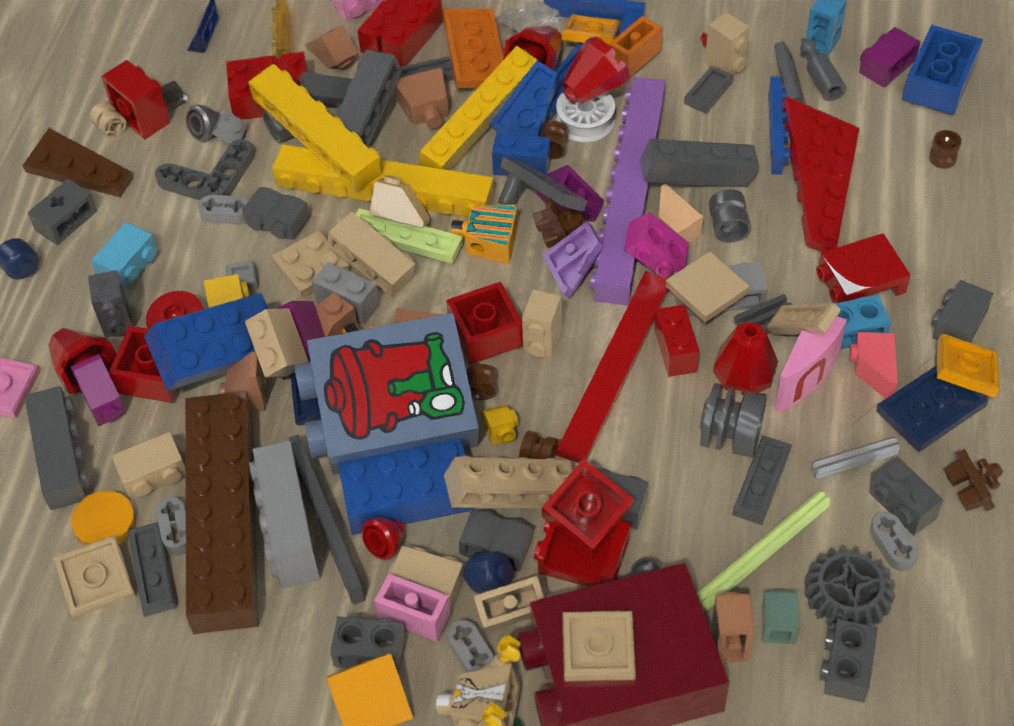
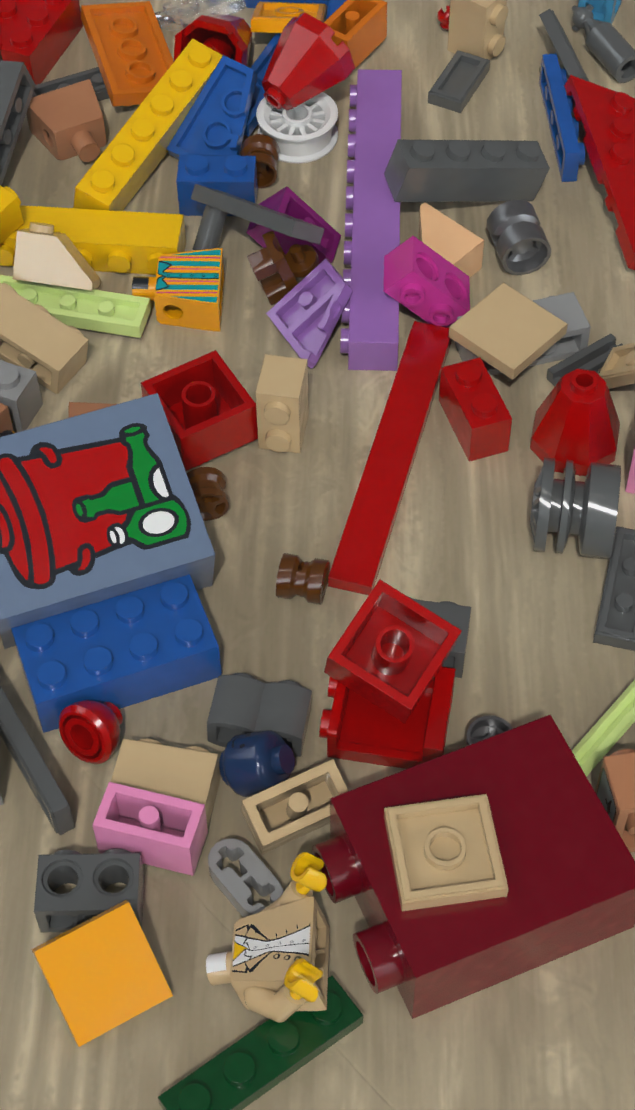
camera: 10 degrees left, 0 degrees up
(499, 424) = (240, 550): yellow plate -> none
(504, 481) = (263, 628): tan brick -> none

